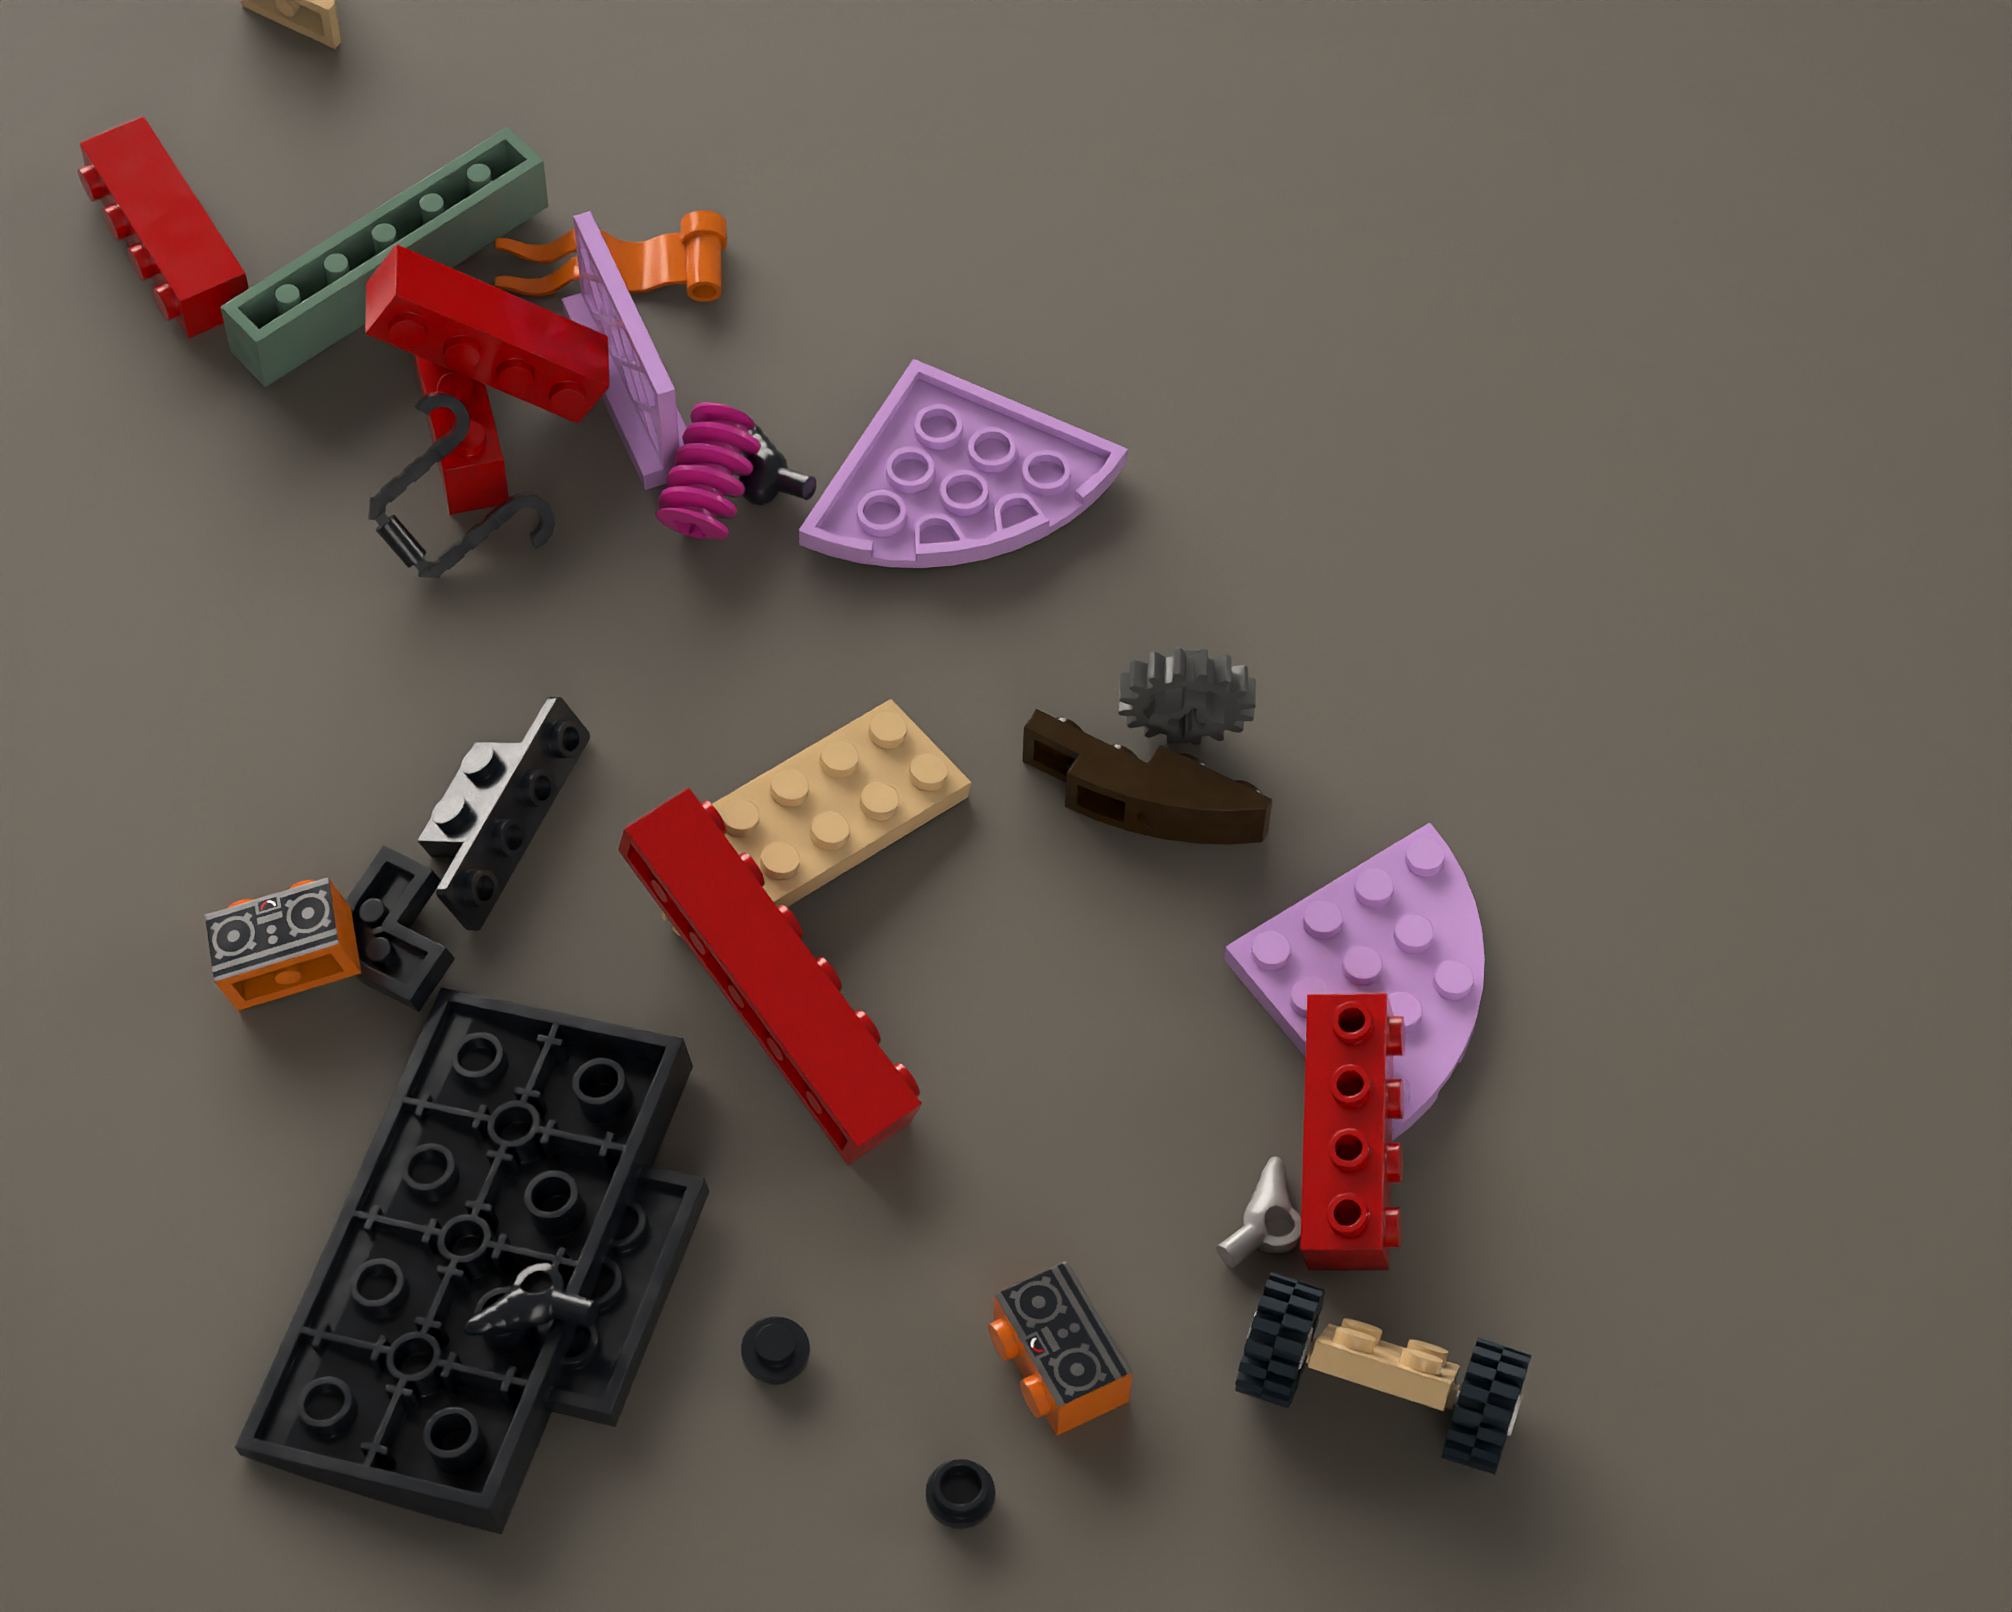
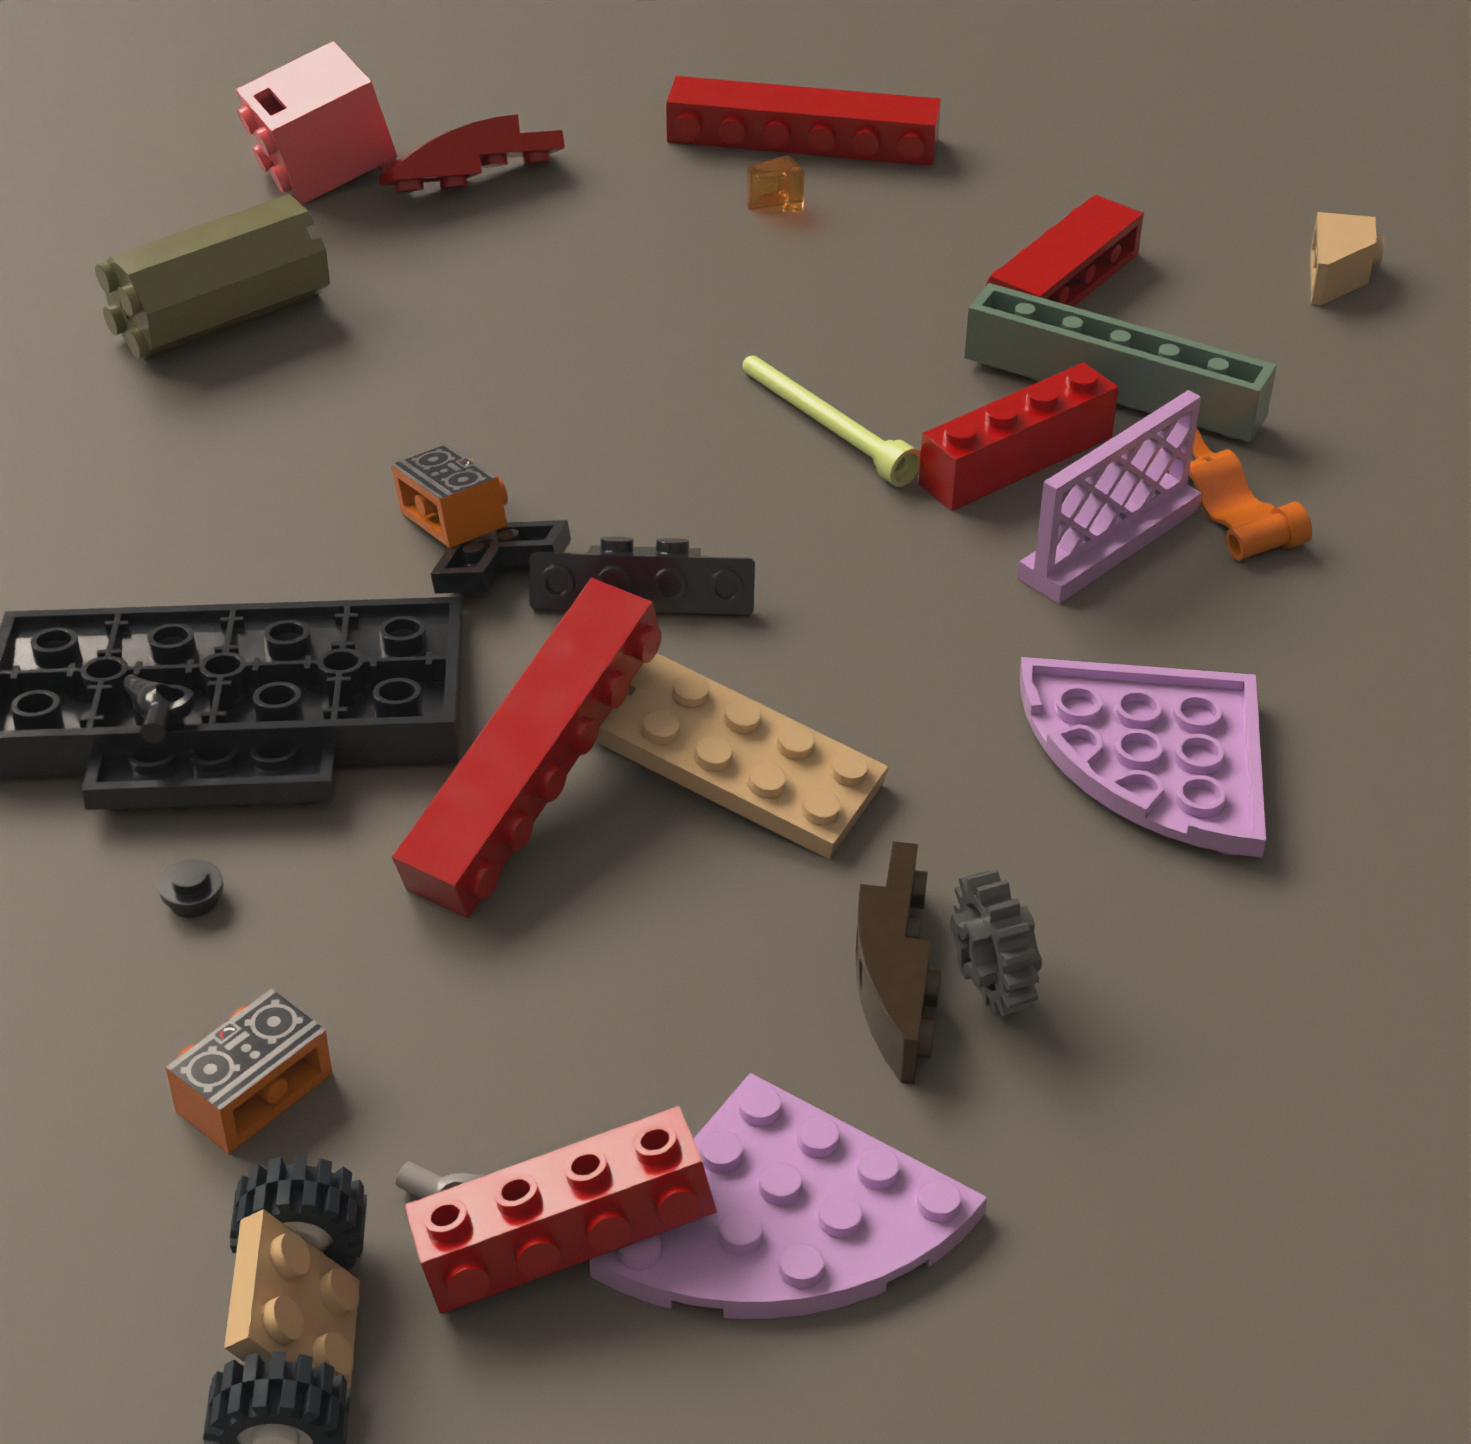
camera: 70 degrees right, 15 degrees down
(405, 544) = (860, 445): black piece -> none
(419, 516) = (893, 459): none -> yellowish green piece
(486, 334) = (1047, 382): red brick -> none
(706, 472) = (1035, 583): dark pink piece -> none
(772, 475) = (1081, 630): black animal -> none
(960, 1493) = (83, 1047): black plate -> none

